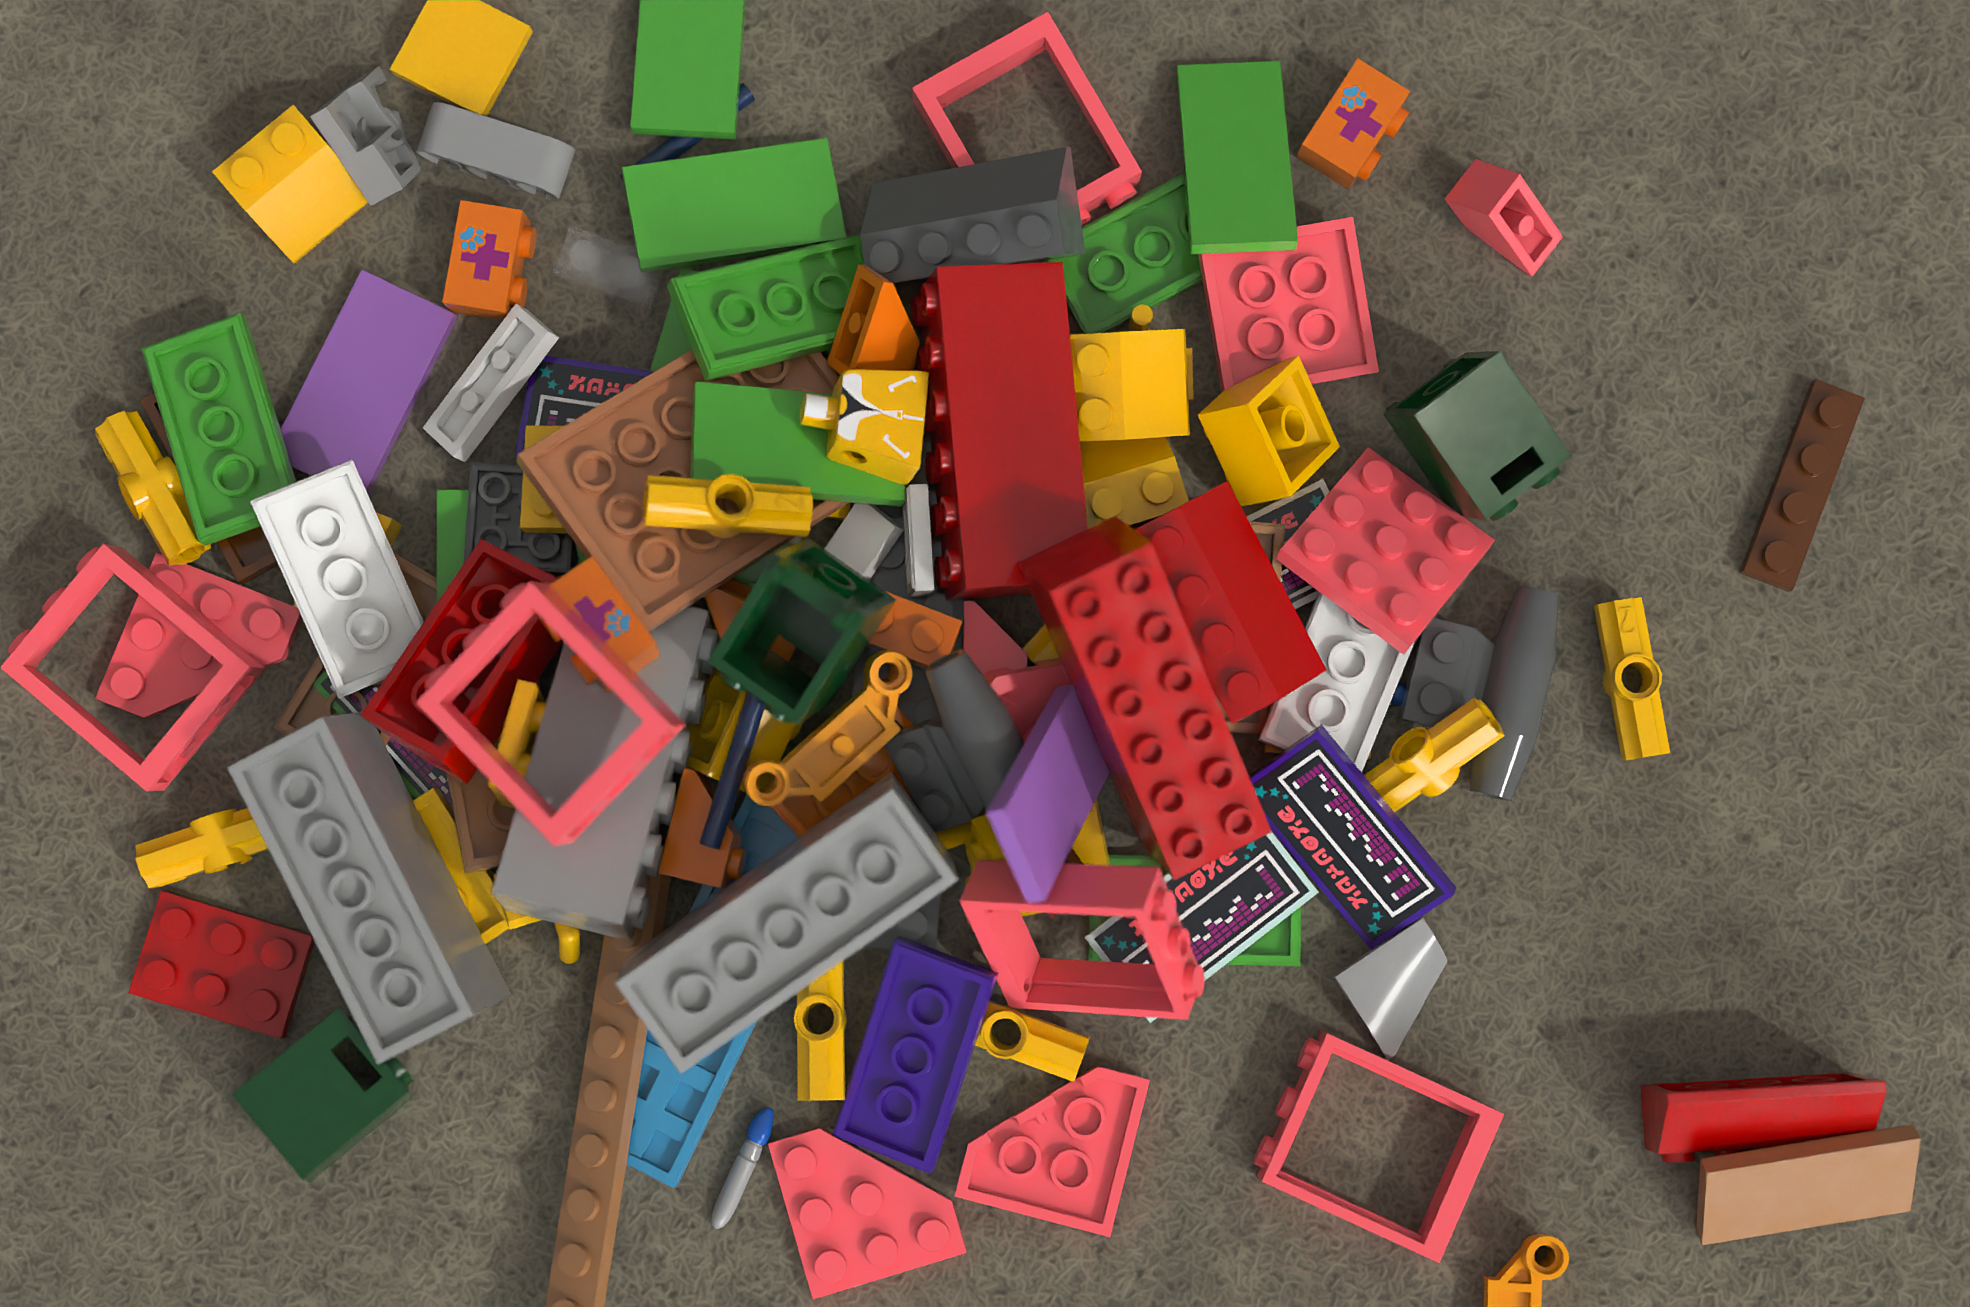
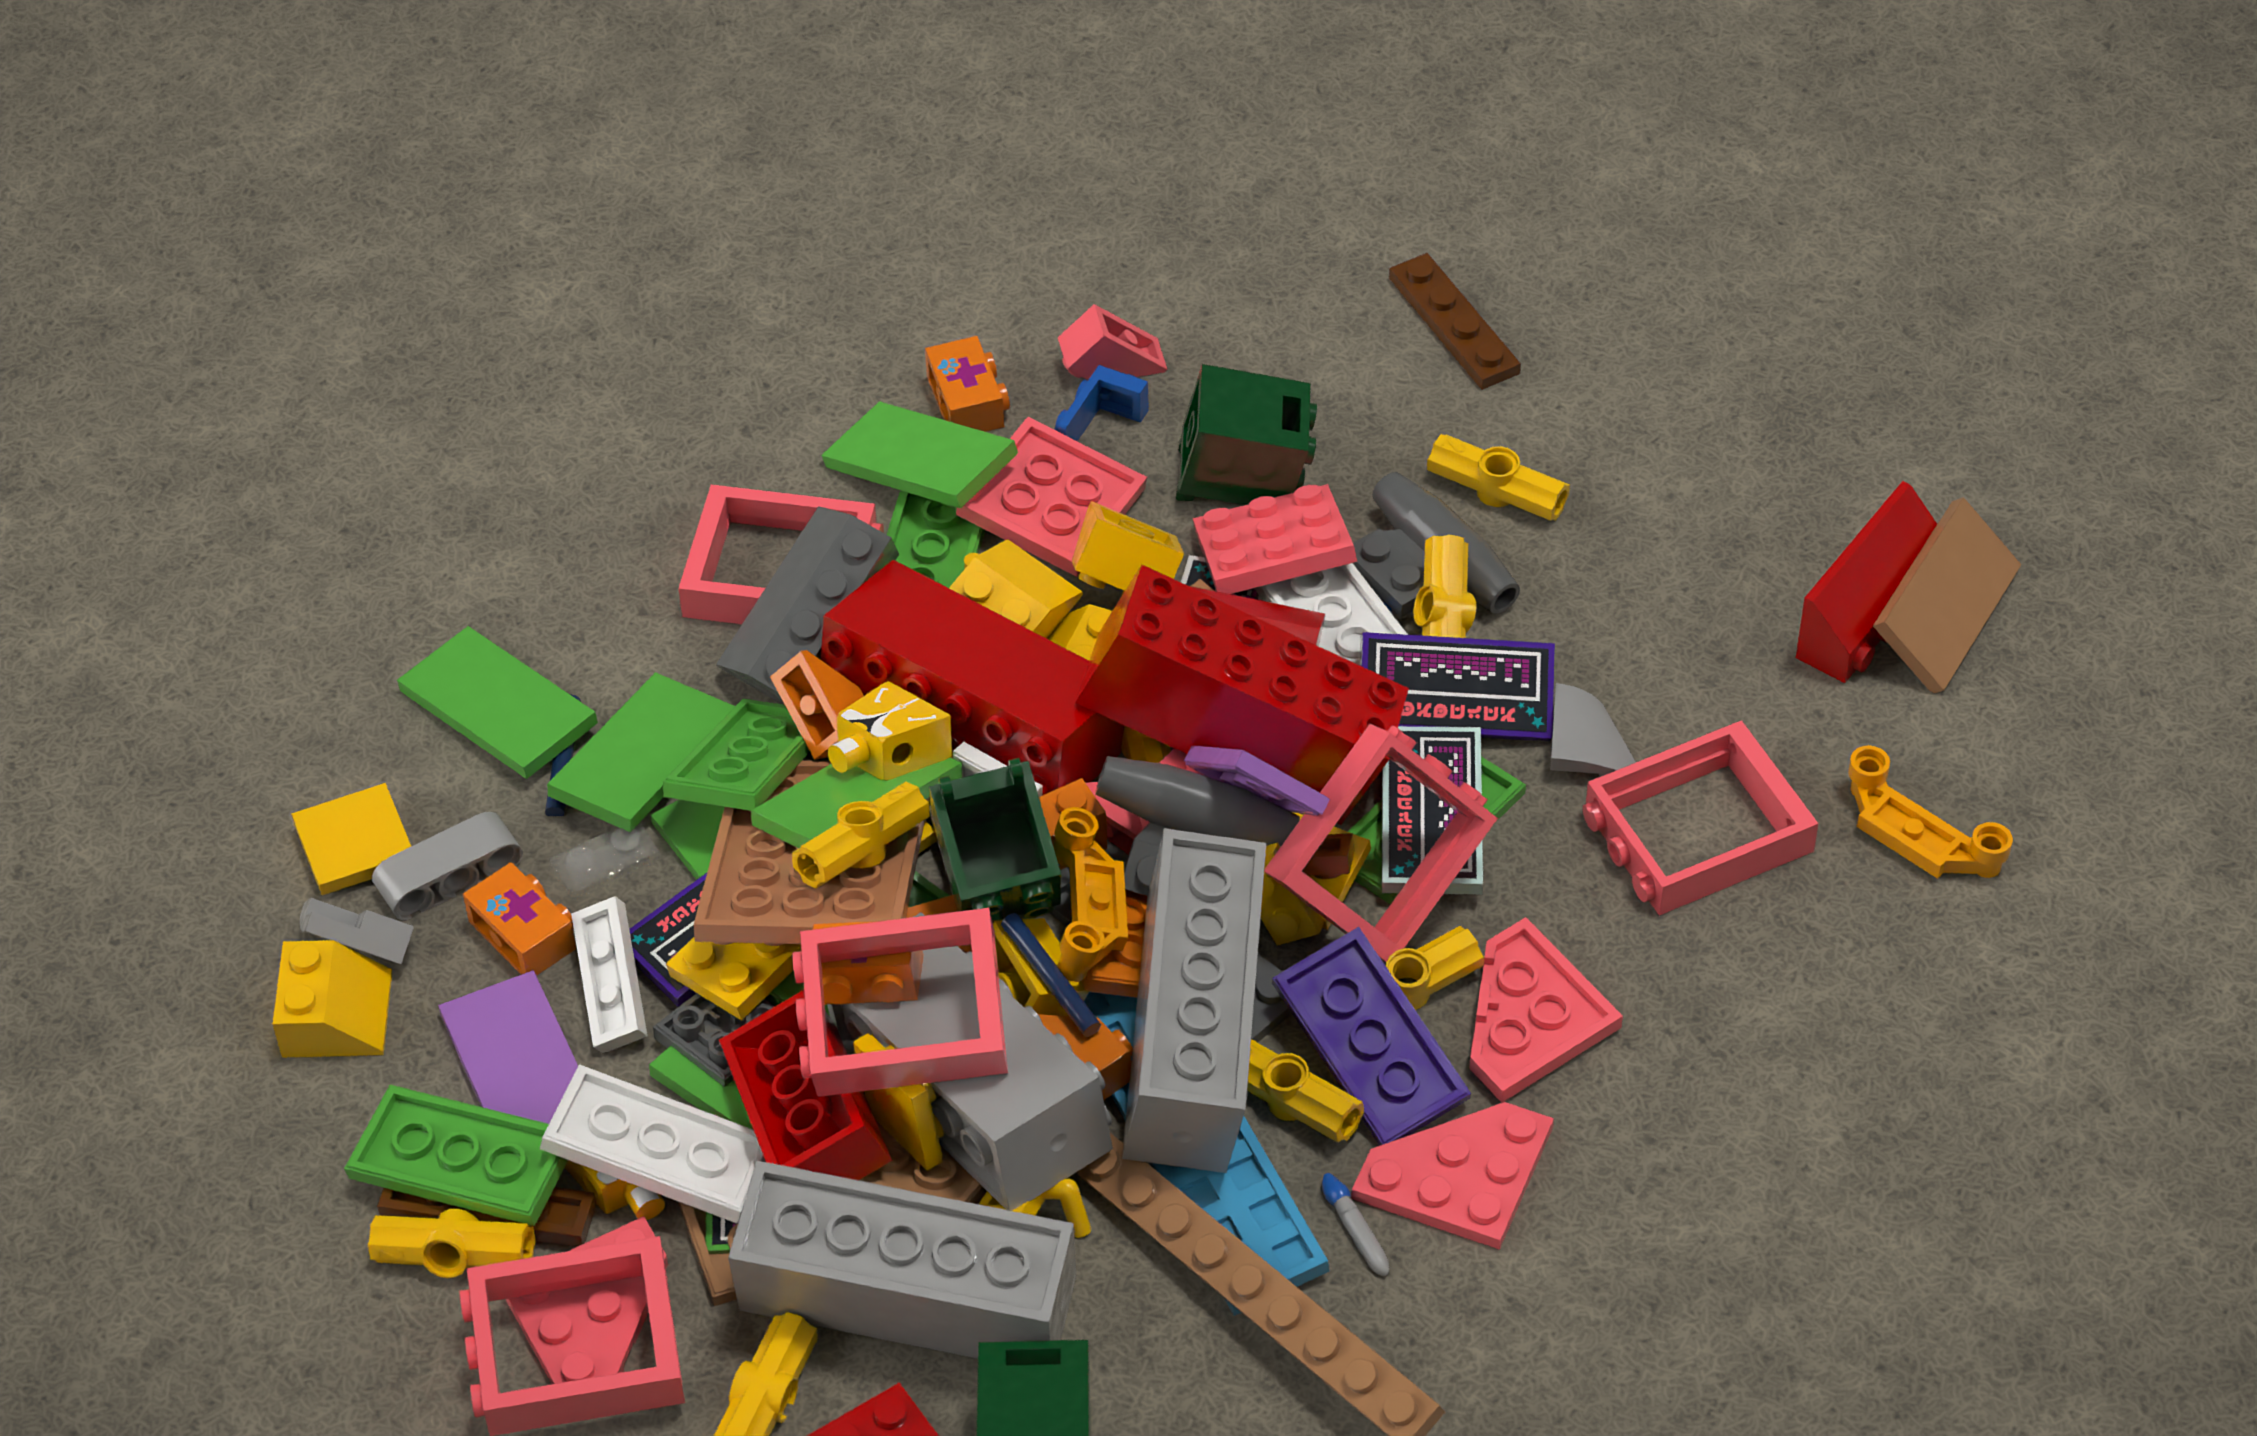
camera: 45 degrees left, 35 degrees down
(1460, 267) = (1108, 391): none -> blue bracket

